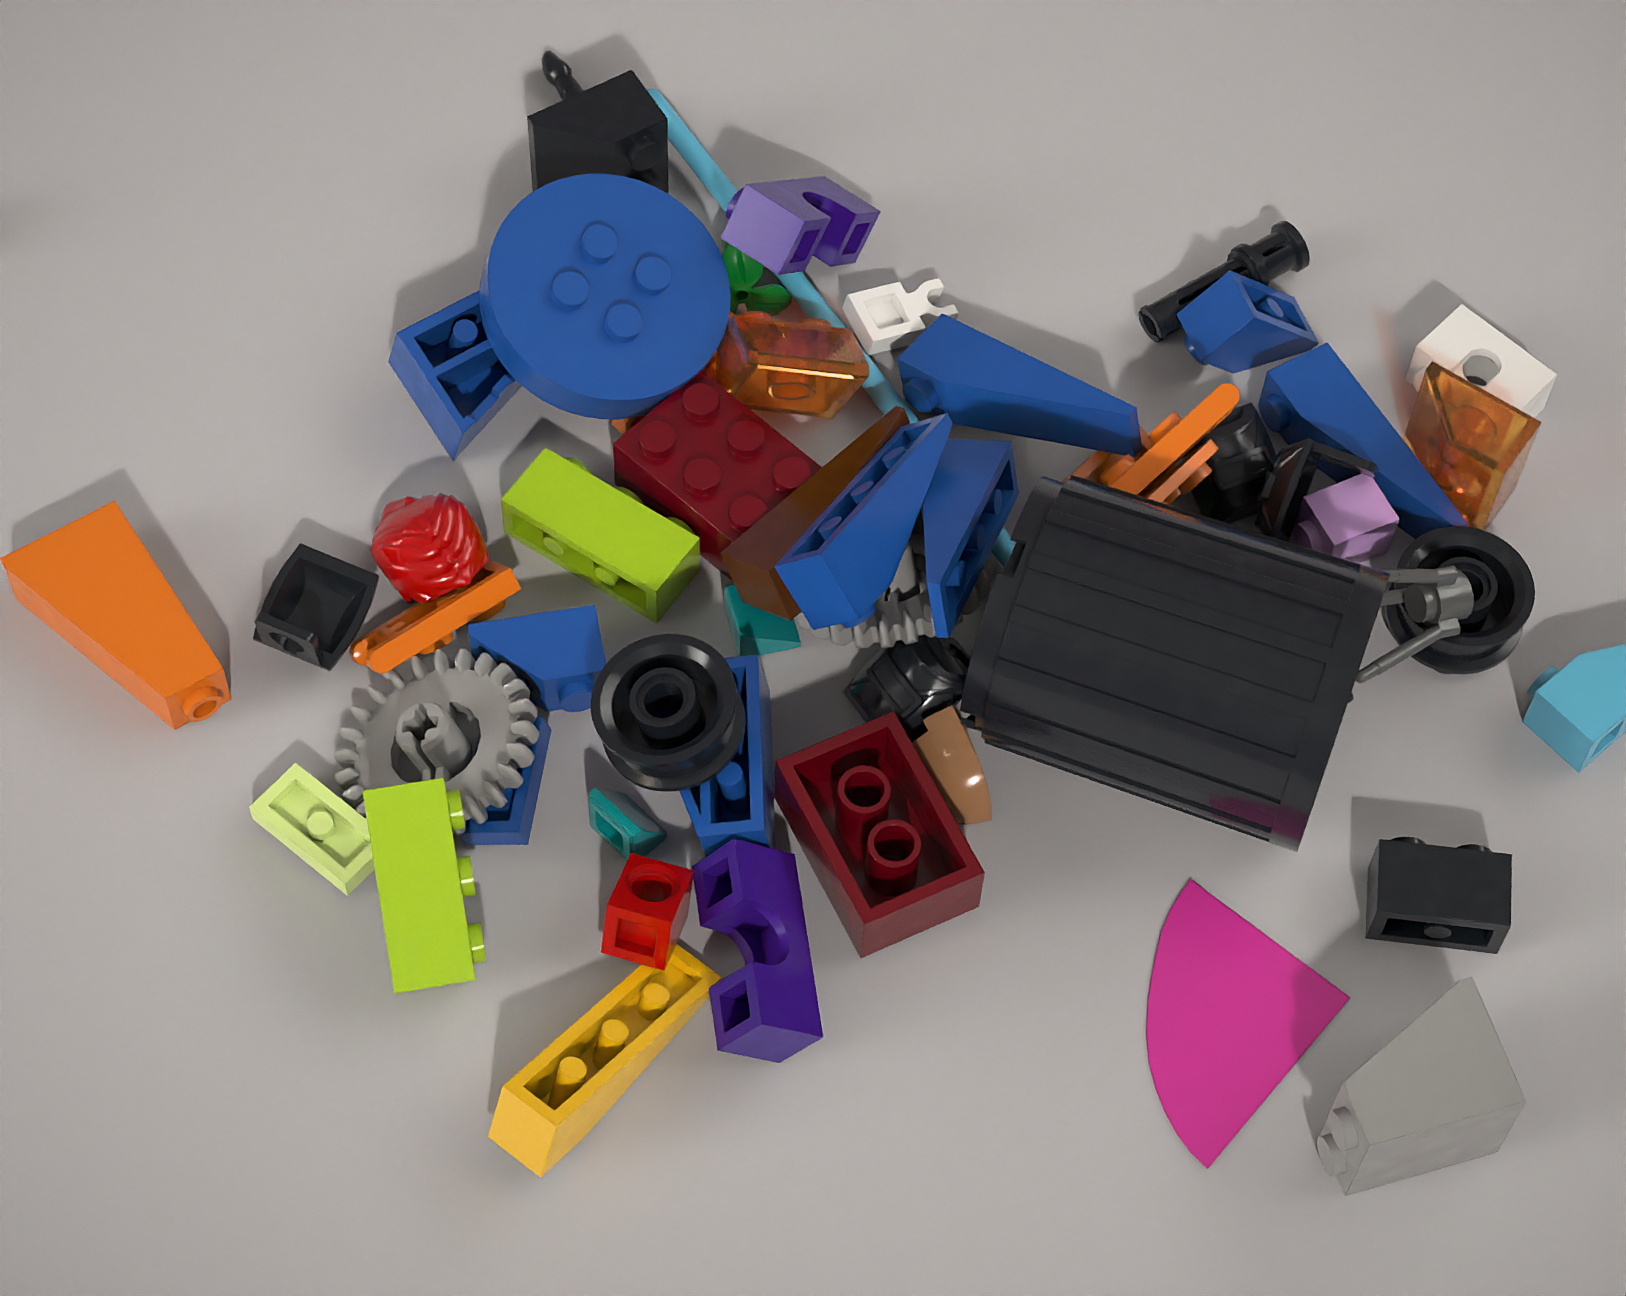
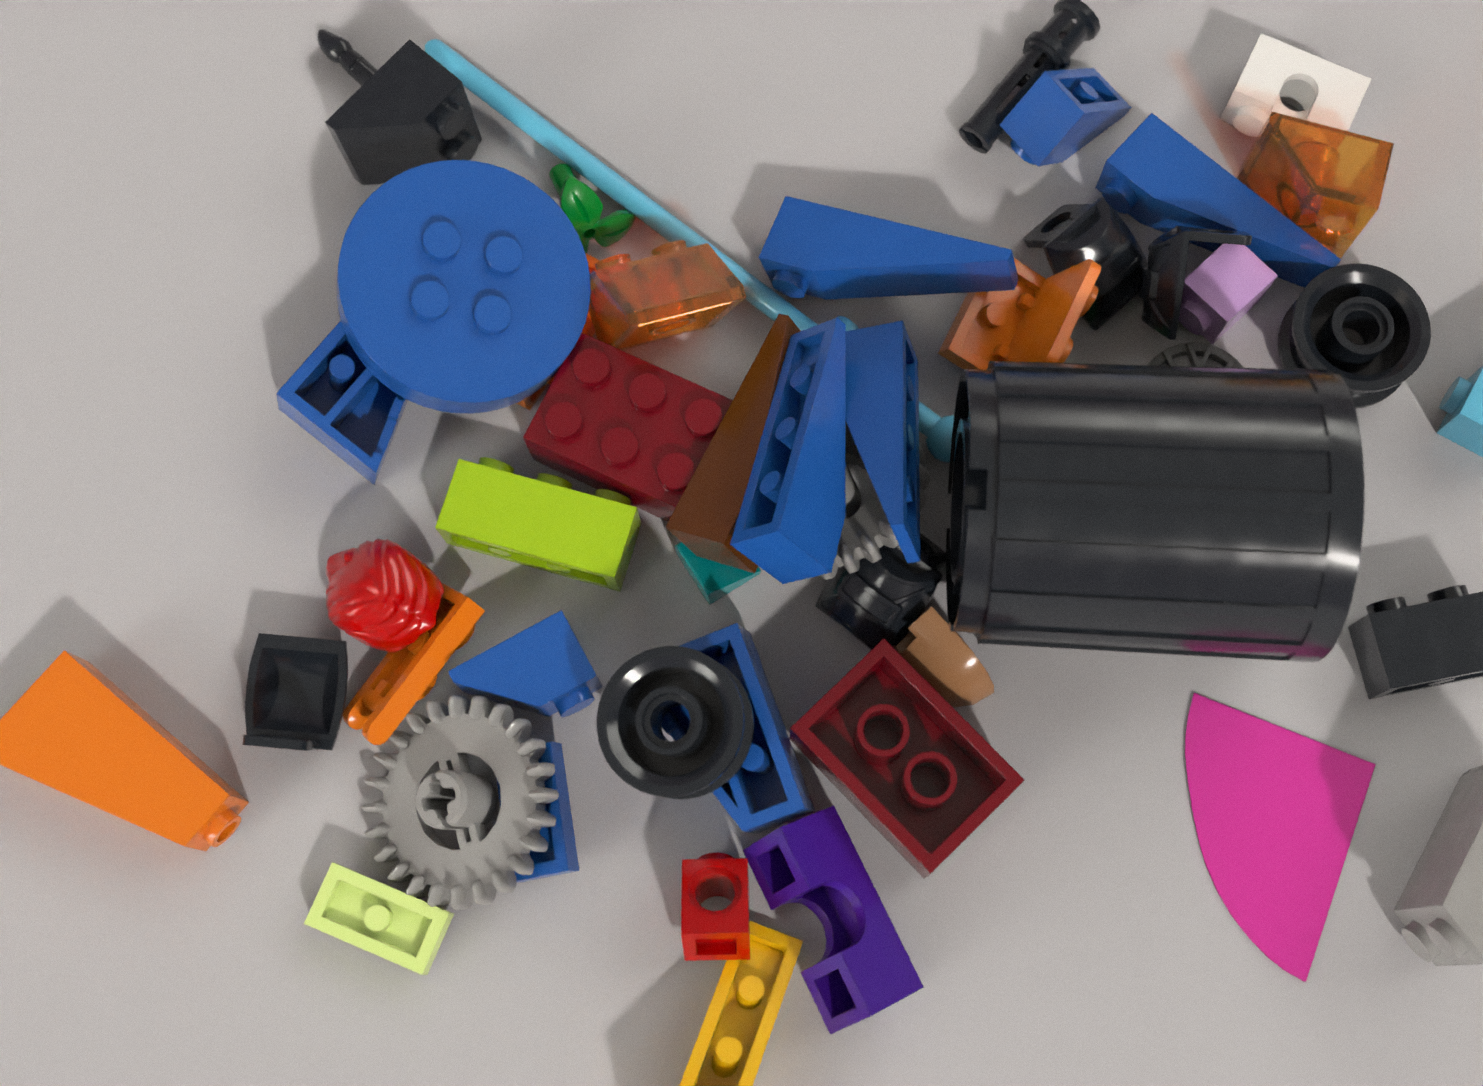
camera: 10 degrees left, 15 degrees up
(423, 884) = (496, 965): lime brick -> none
(623, 823) = (663, 817): teal slope -> none
(798, 219) = (617, 147): arch -> none
(891, 317) = (737, 208): white plate -> none
(1172, 441) = (1050, 273): orange hinge -> none
(1436, 599) = (1352, 355): dark grey plant -> none

